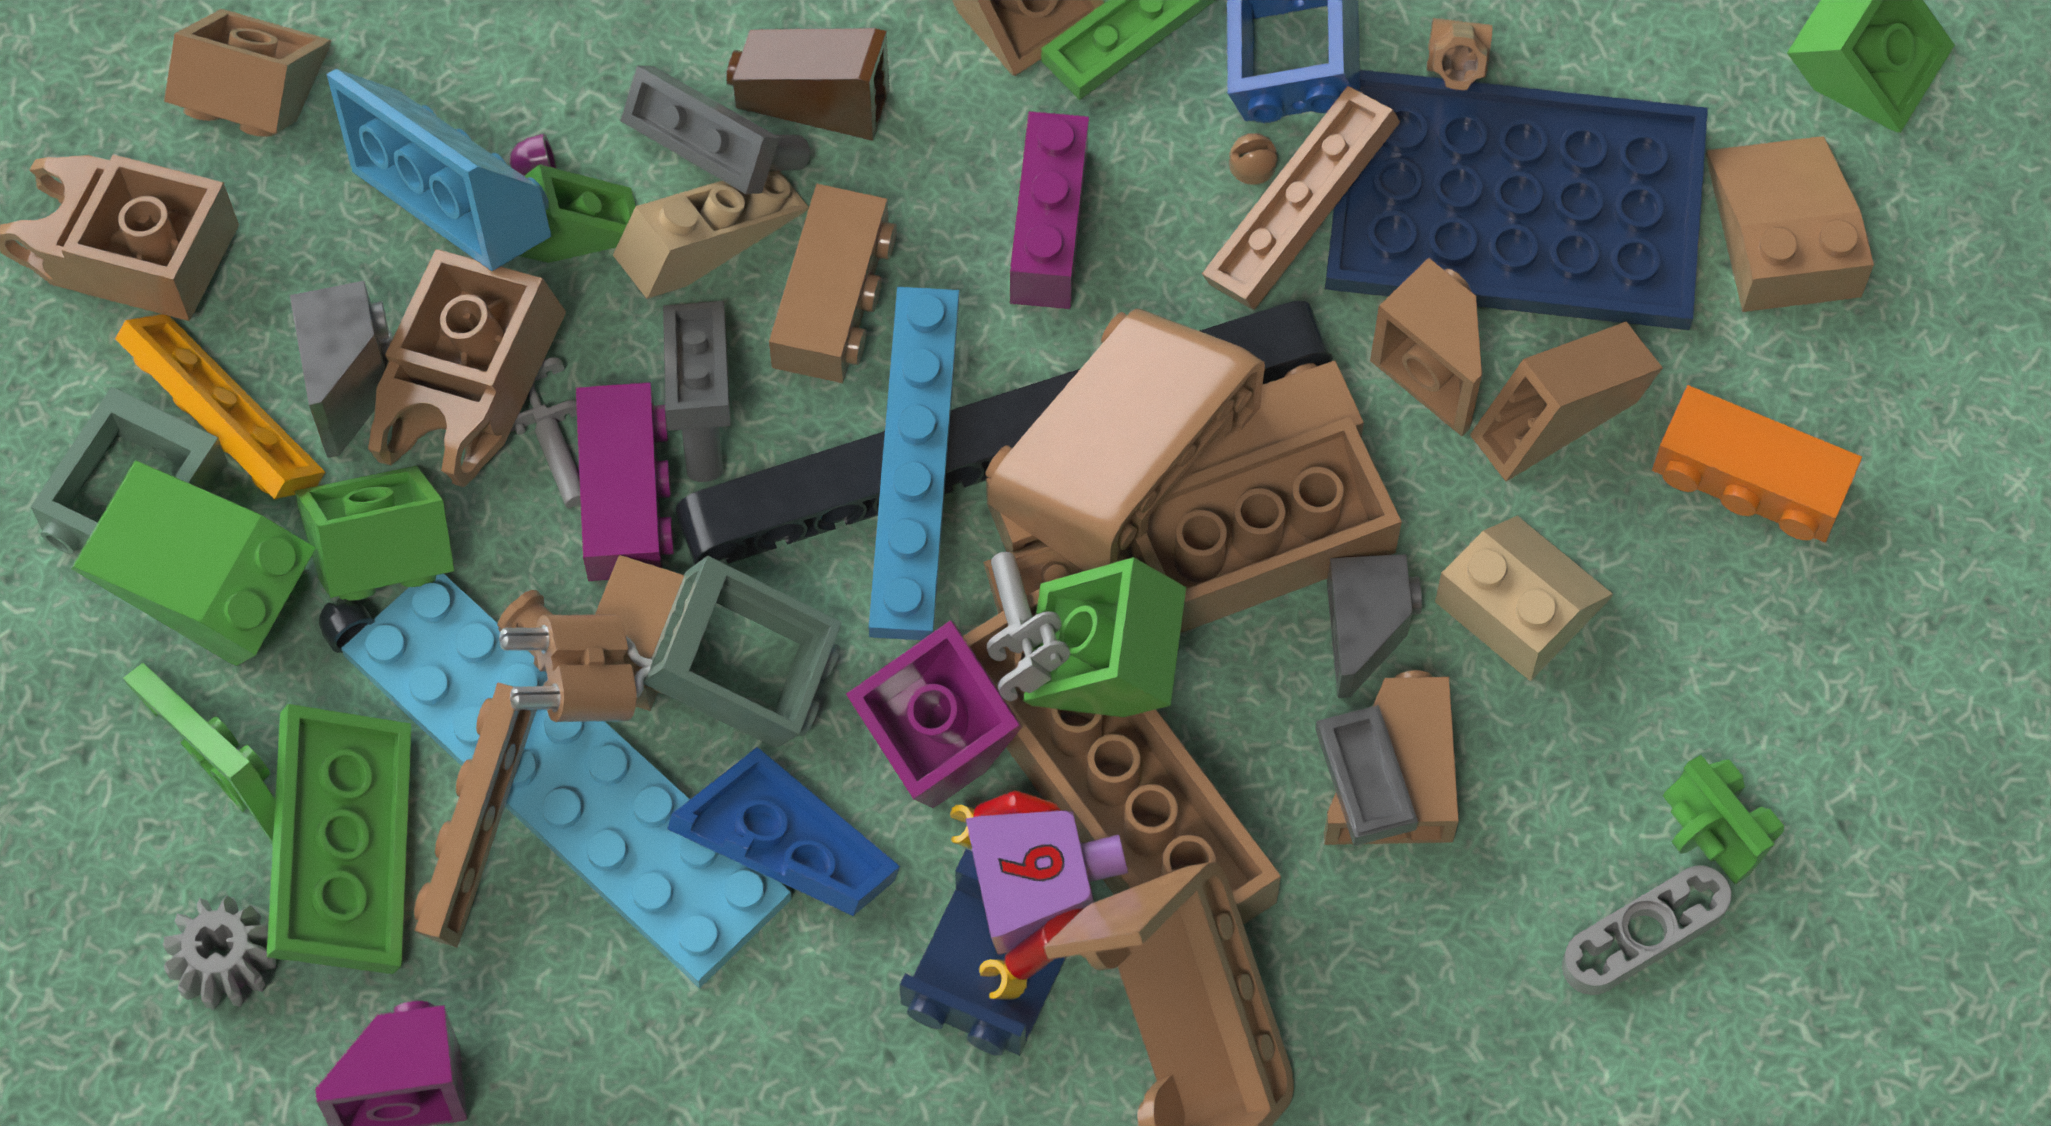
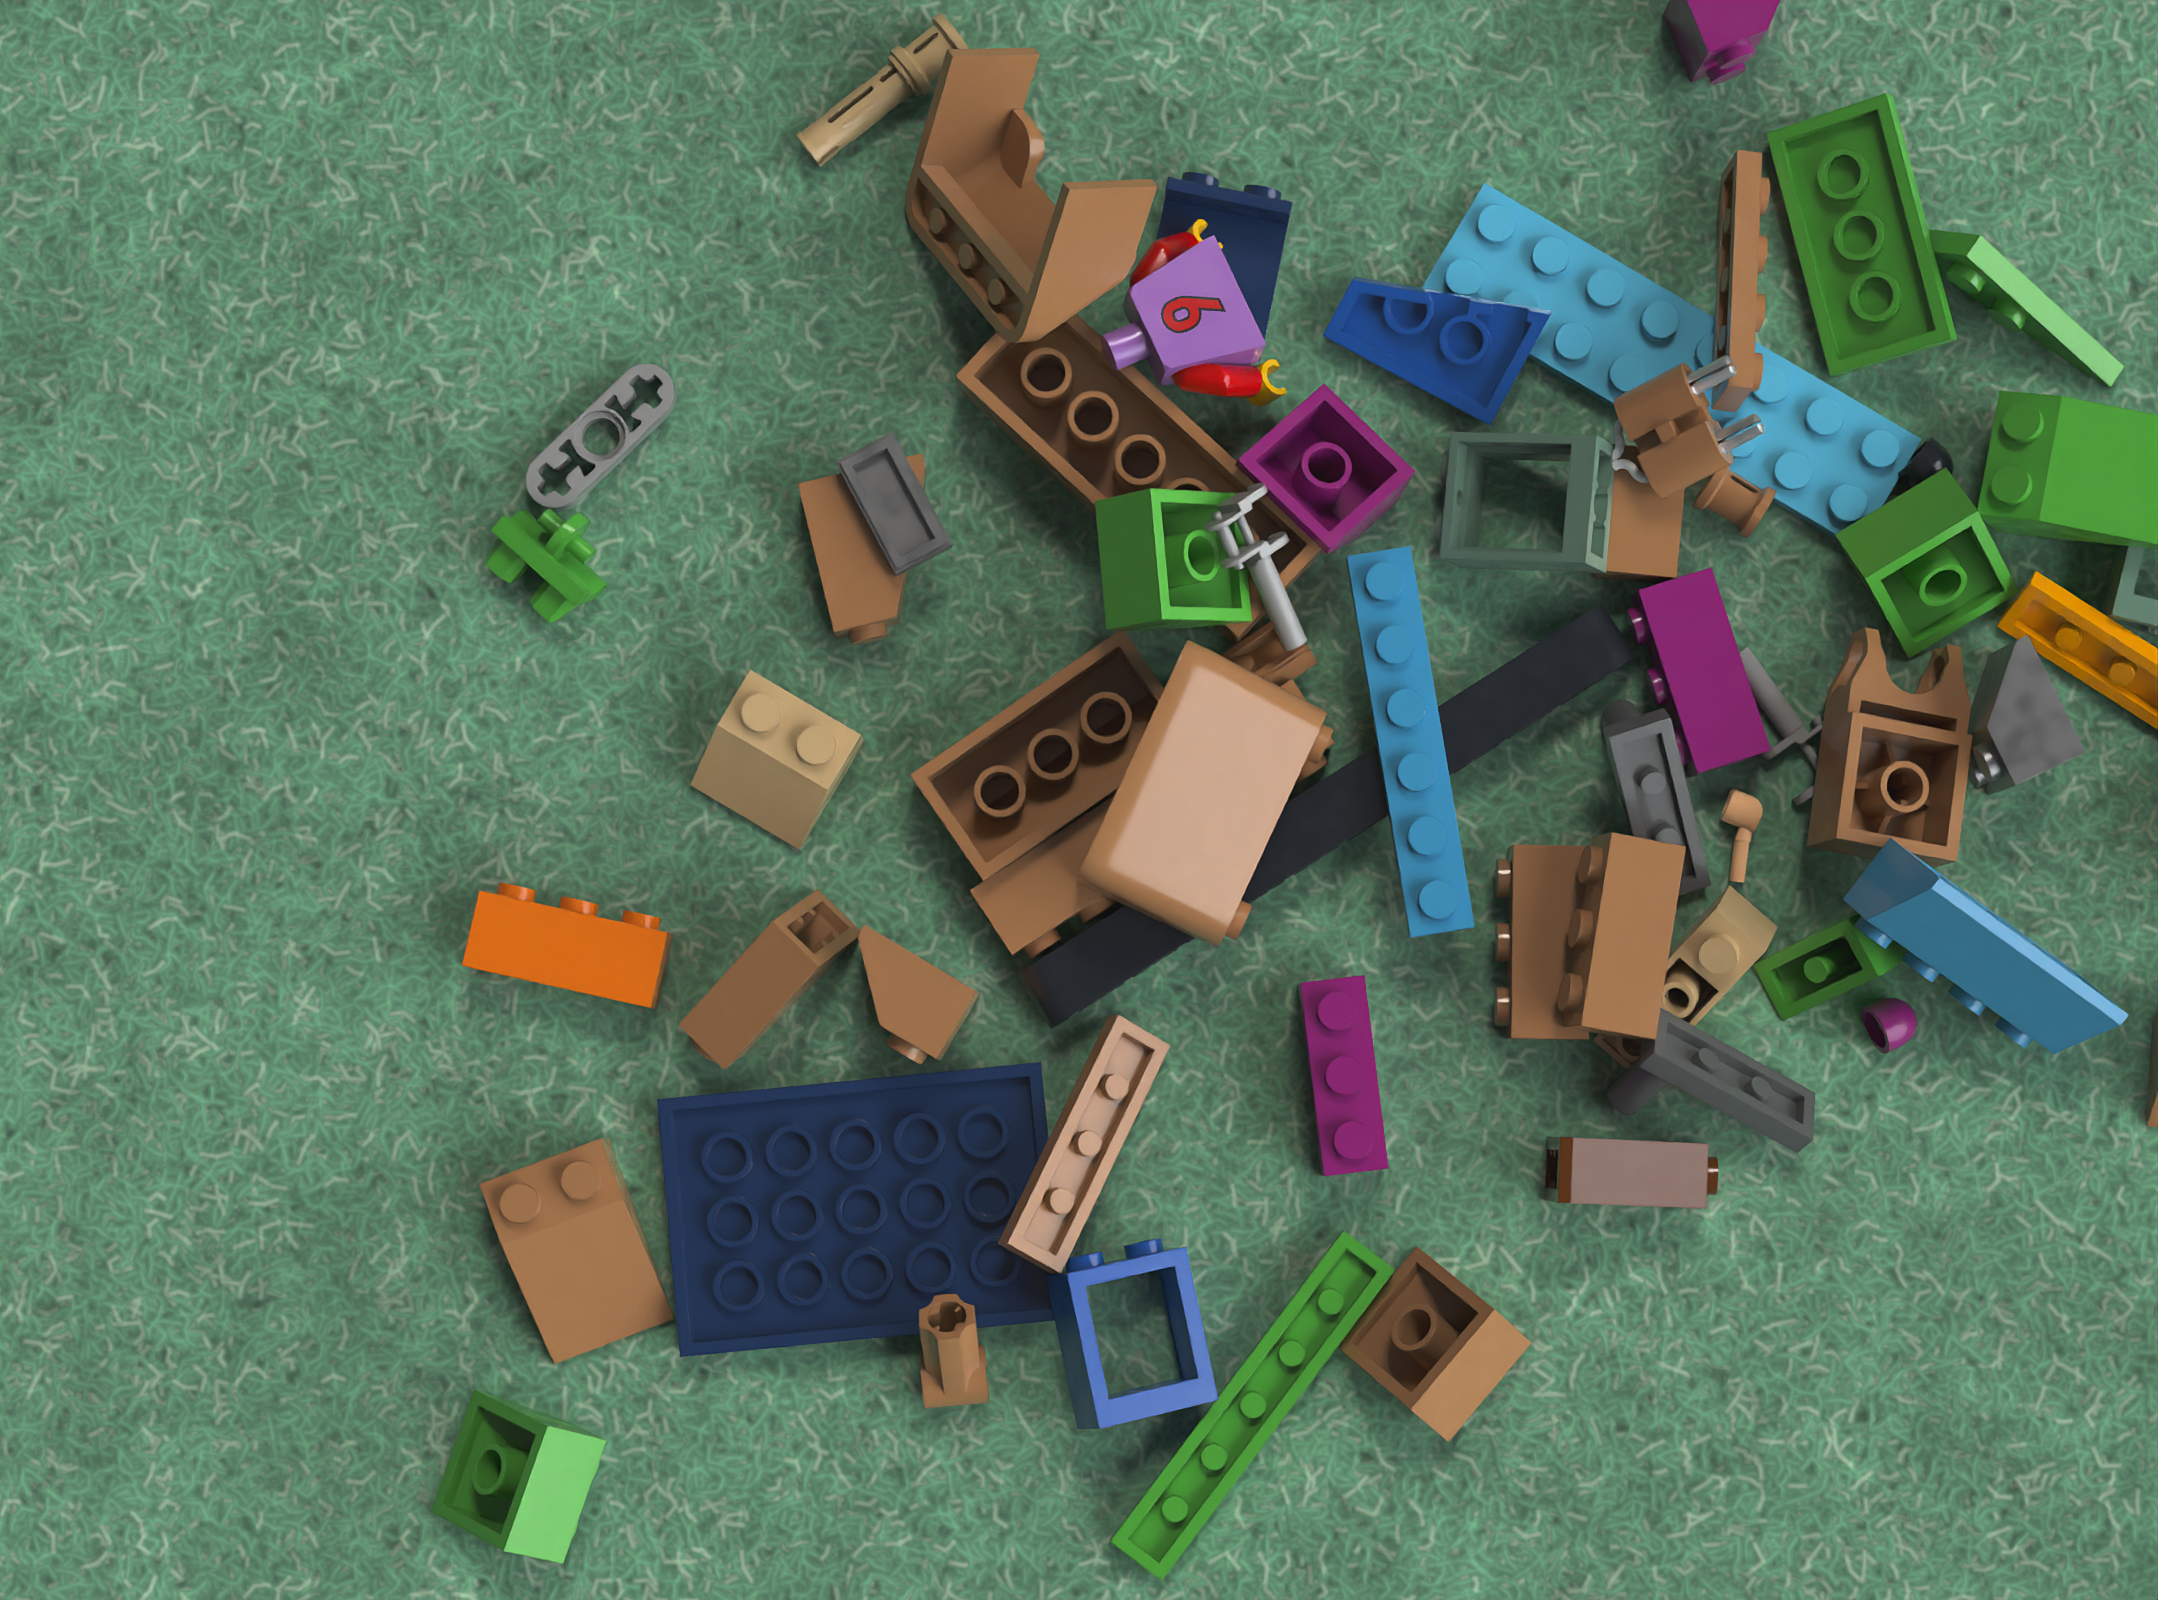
camera: 170 degrees right, 20 degrees up
(215, 973) = (1965, 106): light grey gear -> none
(614, 361) = (1745, 813): none -> light nougat hand
(762, 247) = (1621, 936): none -> medium nougat brick
(1256, 164) = (1152, 1212): medium nougat hinge -> none
(1369, 614) = (924, 695): flat silver slope -> none

